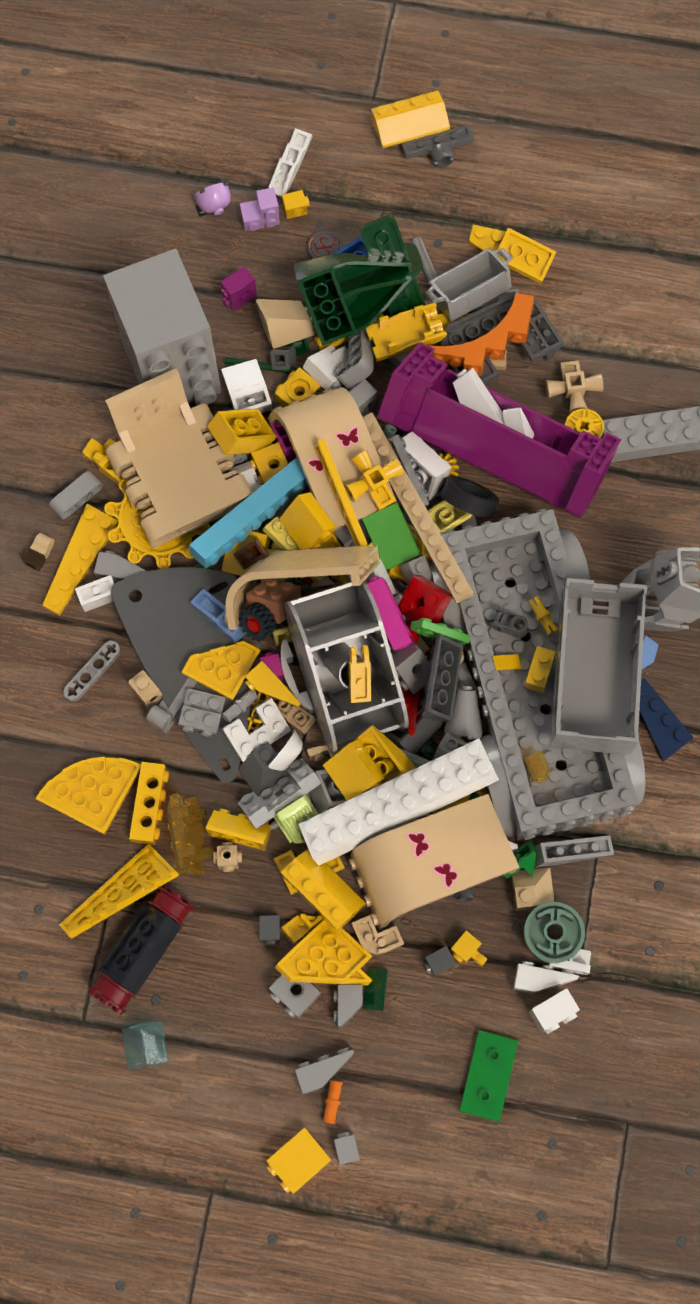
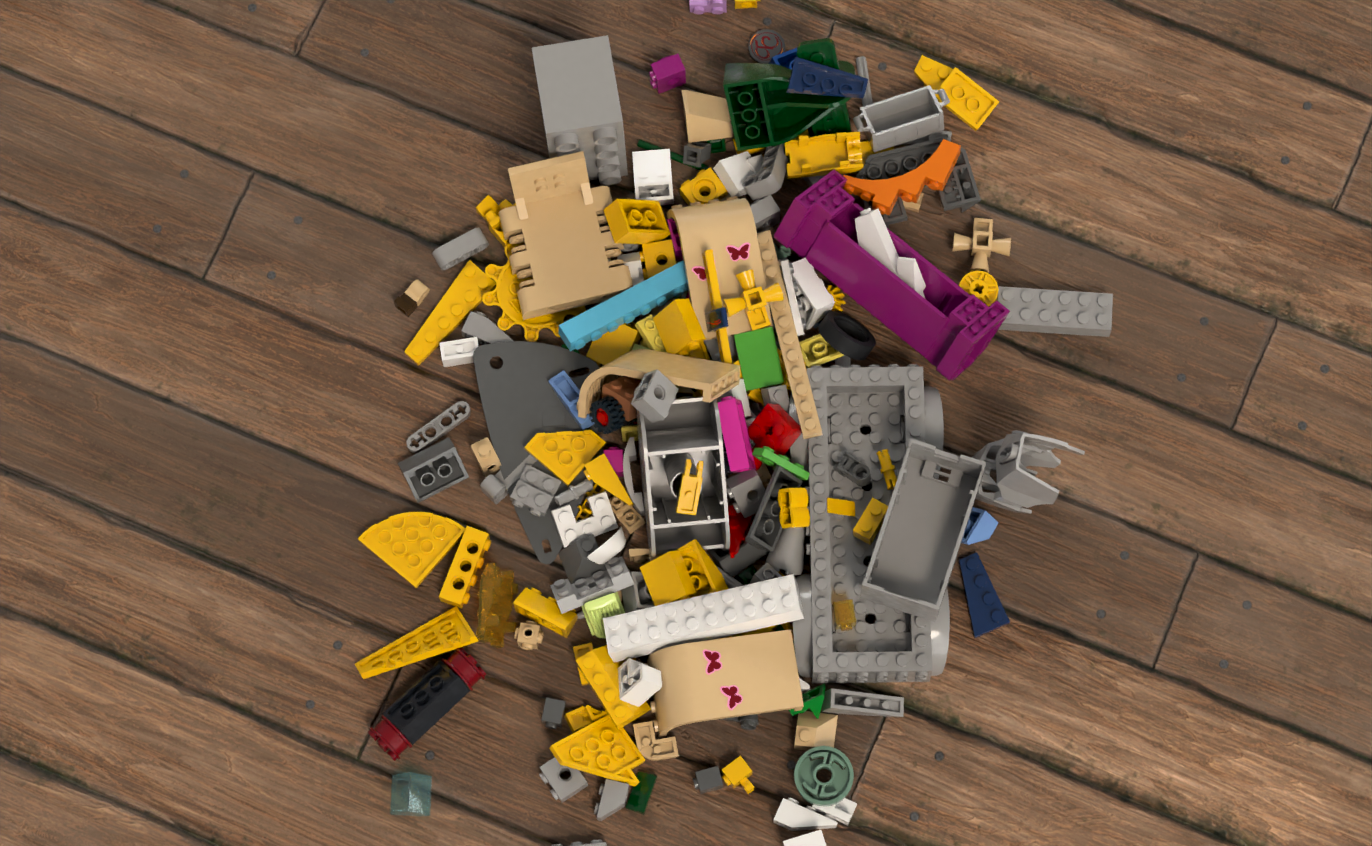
camera: 15 degrees right, 0 degrees up
(96, 714) = (433, 470): none -> dark grey slope
(251, 553) = (618, 345): reddish brown slope -> none
(303, 591) = (654, 396): none -> light grey brick
(343, 506) = (716, 319): none -> slope
(348, 880) = (637, 682): none -> white brick
(388, 256) = (818, 79): none -> dark blue wing
(462, 673) = (793, 508): none -> yellow brick

